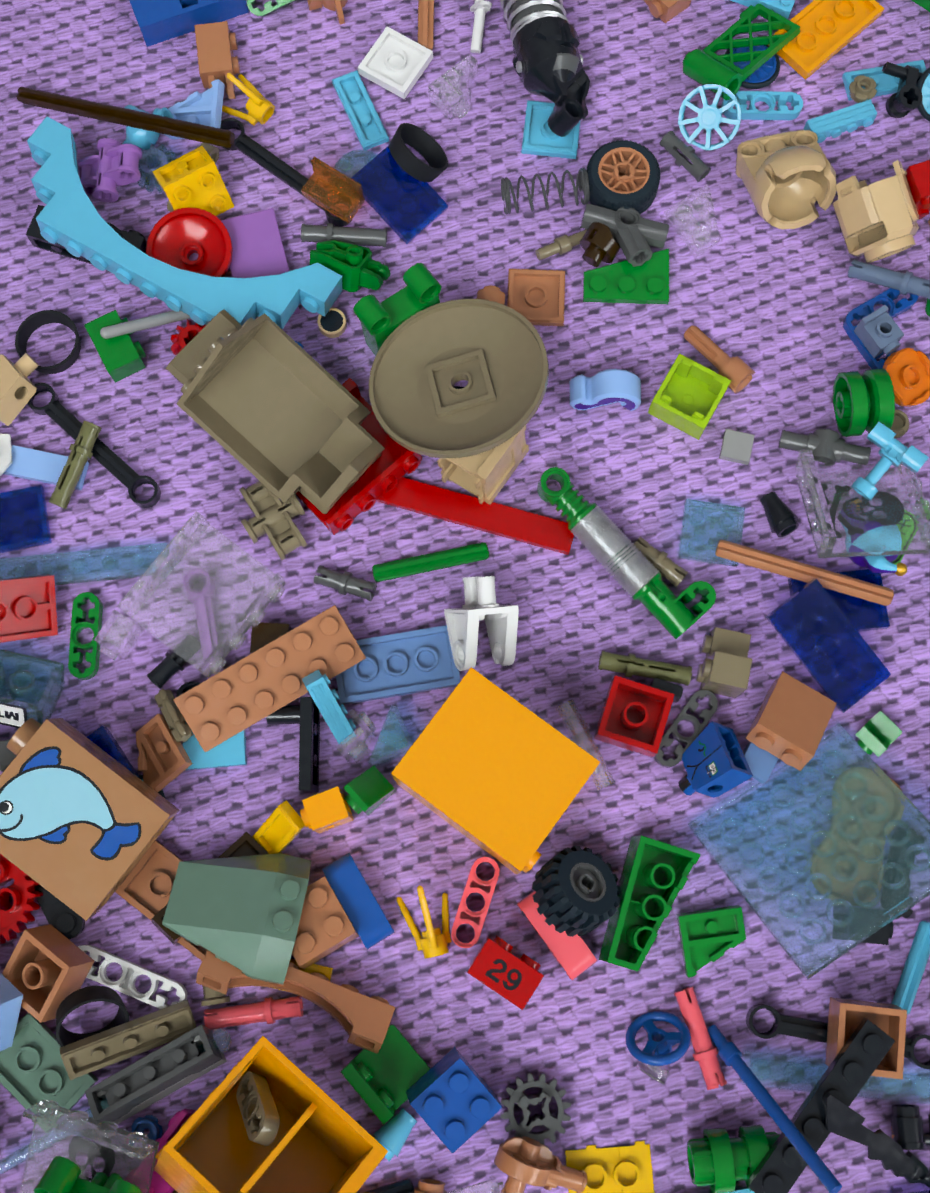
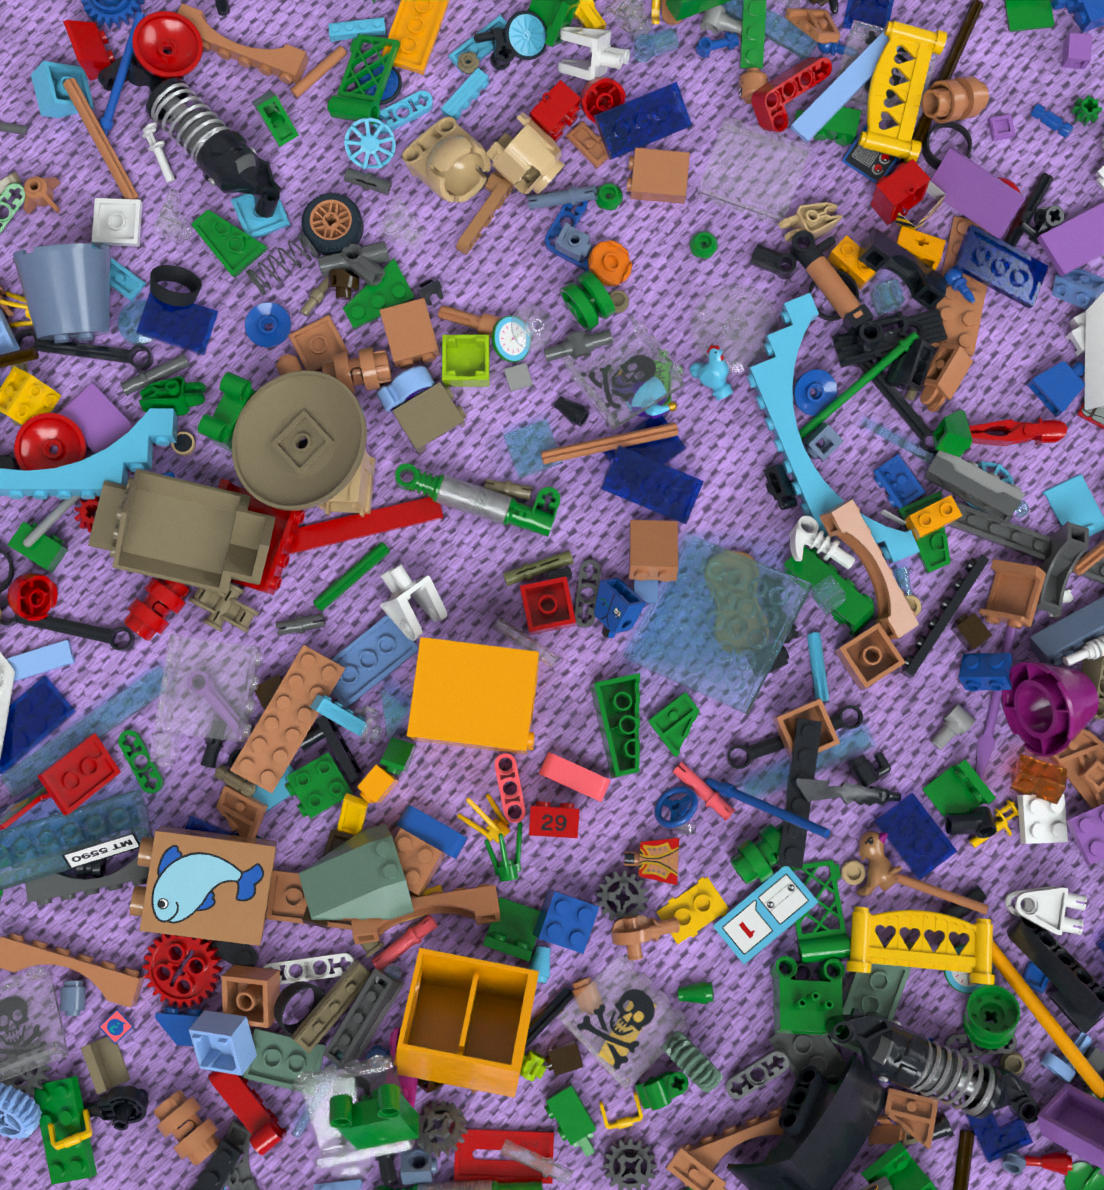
camera: 30 degrees left, 5 degrees up
(74, 466) = (61, 647): olive pin -> none
(77, 393) = (32, 596): none -> red cylinder
(182, 488) = (147, 621): none -> red piece
(258, 1108) = (442, 995): dark tan beam -> none
(259, 774) = (317, 786): none -> green brick
(302, 92) = (66, 290): none -> sand blue cone
(333, 191) = (129, 348): clear orange panel -> none
(419, 996) = (506, 868): none -> green plant
(493, 234) = (266, 314): none -> blue dish
(499, 141) = (229, 244): none -> green wing
(576, 891) = (572, 742): black wheel -> none
(582, 344) = (372, 364): none -> nougat piece
(600, 1088) = (656, 860): none -> torso
(615, 434) = (429, 416): none -> dark tan panel
(622, 42) = (275, 118): none -> green arch
(643, 335) = (410, 333): none -> nougat brick
(687, 299) = (429, 287): none -> black tile
(694, 20) = (320, 70): none -> nougat piece
(726, 663) = (590, 534): dark tan brick -> none
(752, 400) = (504, 342): none -> piece
(773, 400) = (524, 331): none -> clear dish
(825, 237) = (500, 190): none -> medium nougat beam
(878, 734) = (715, 526): bracket -> none
(892, 453) = (624, 327): medium azure bar -> none

